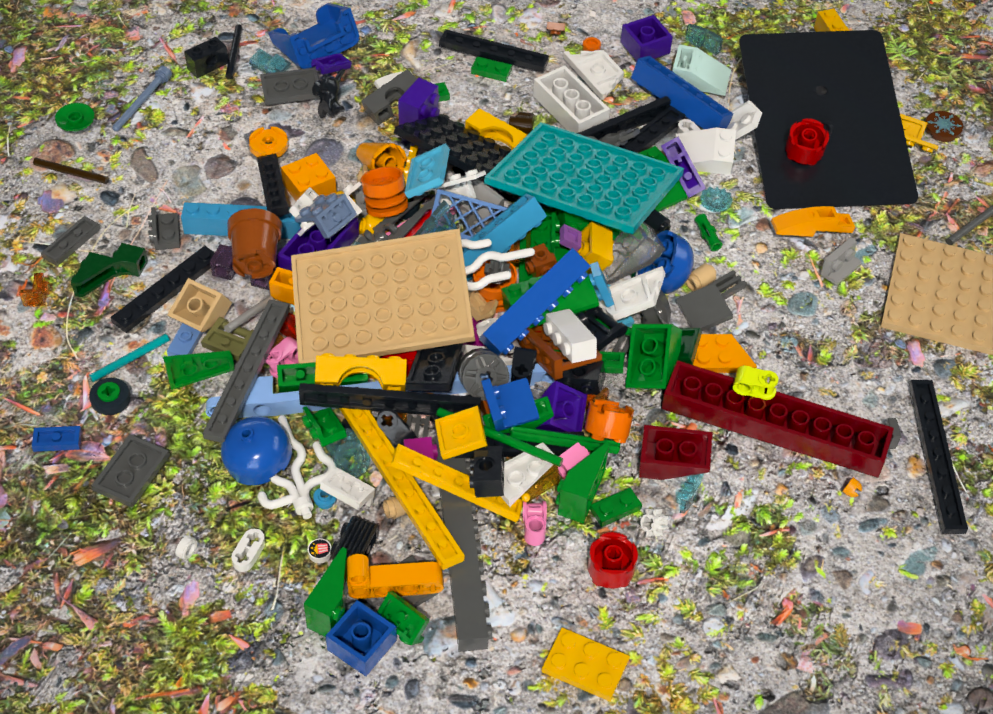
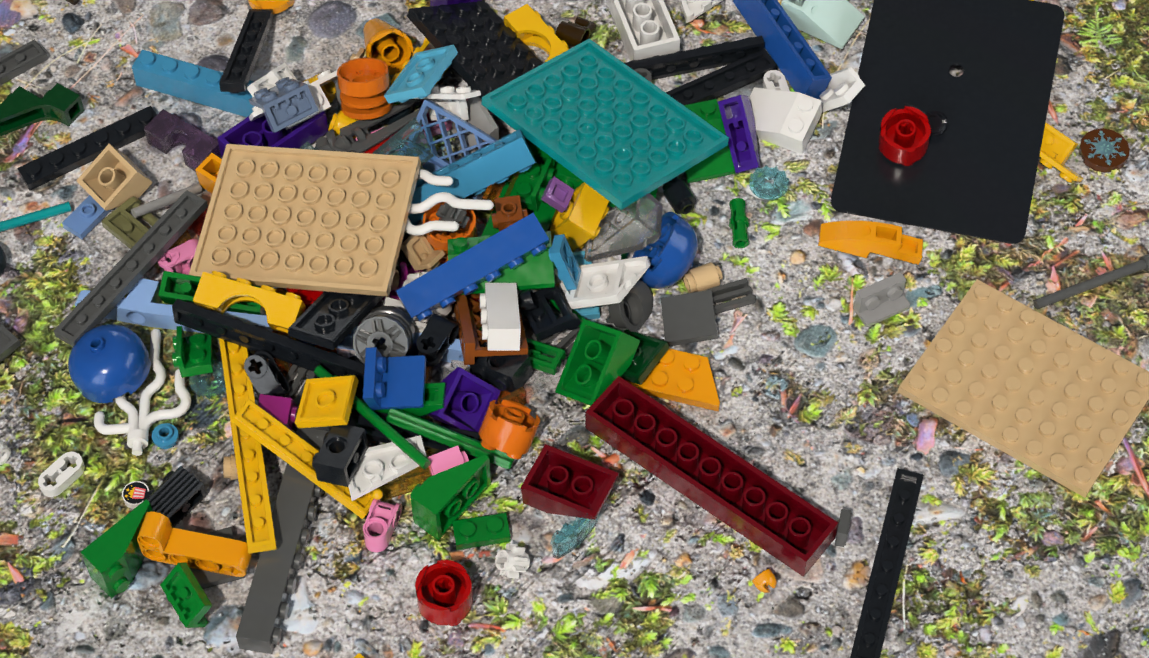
camera: 20 degrees right, 5 degrees up
(164, 230) = (113, 76): dark grey bracket -> none
(192, 368) = (82, 251): green wing -> none
(254, 241) = (192, 118): dark orange piece -> none
(308, 173) = (298, 48): light orange brick -> none
(348, 489) = (189, 433): white bracket -> none
(360, 456) = (195, 401): clear light blue gear -> none
(361, 638) = (136, 605): blue brick -> none
(620, 138) = (674, 79): dark grey piece -> none
(753, 382) = (691, 425): neon yellow piece -> none

